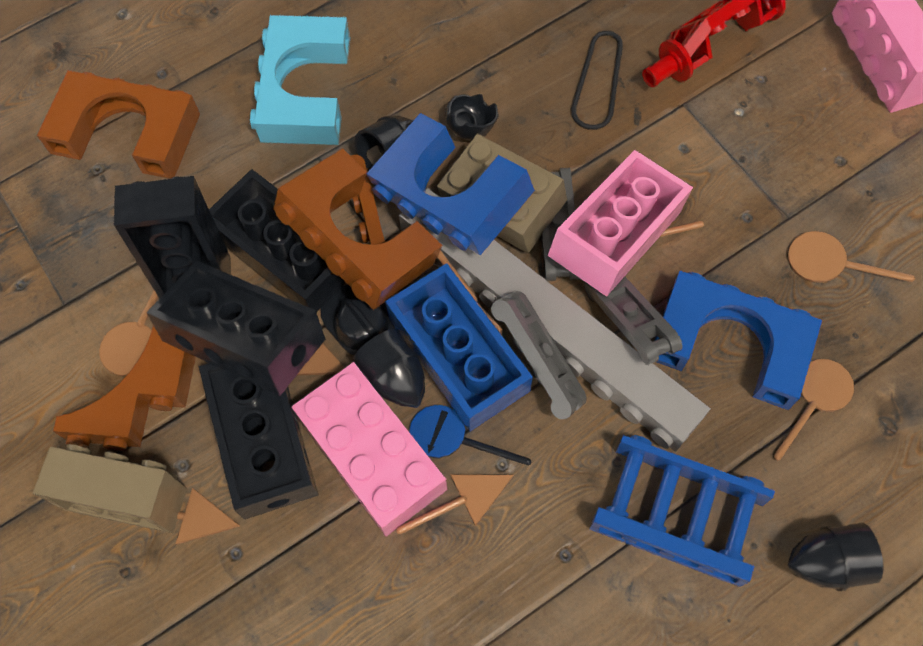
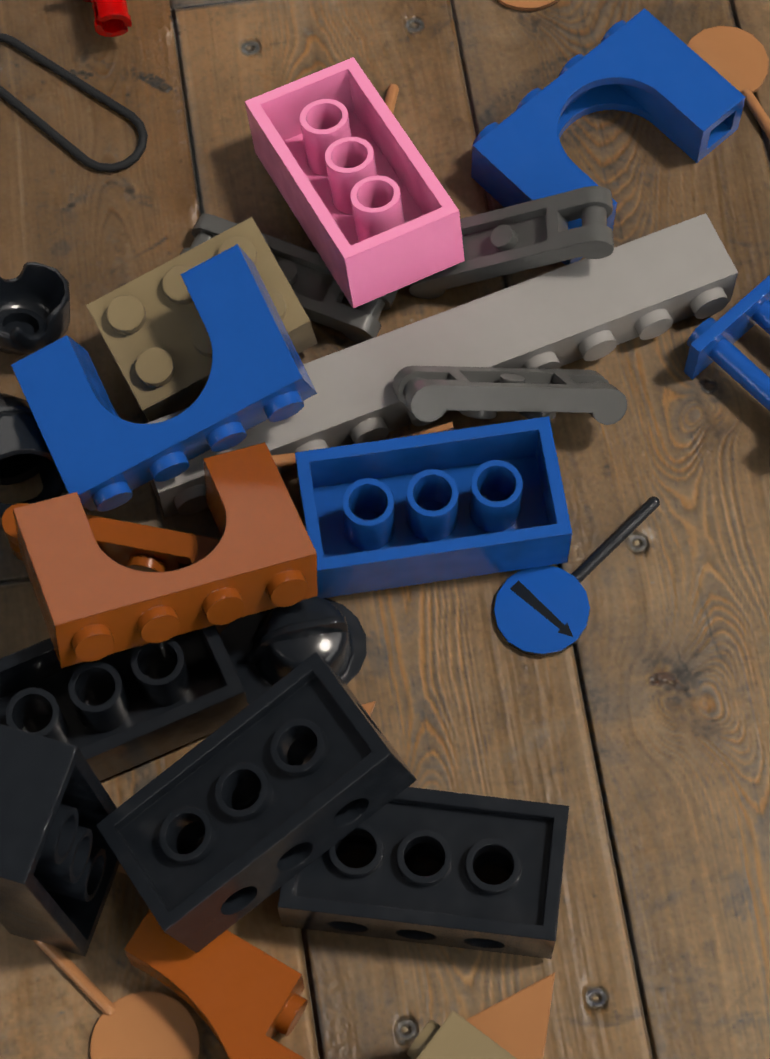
camera: 65 degrees left, 0 degrees up
(370, 448) = (536, 709): bright pink brick -> none
(392, 368) = (421, 621): black helmet -> none
(476, 492) = (667, 598): medium nougat piece -> none

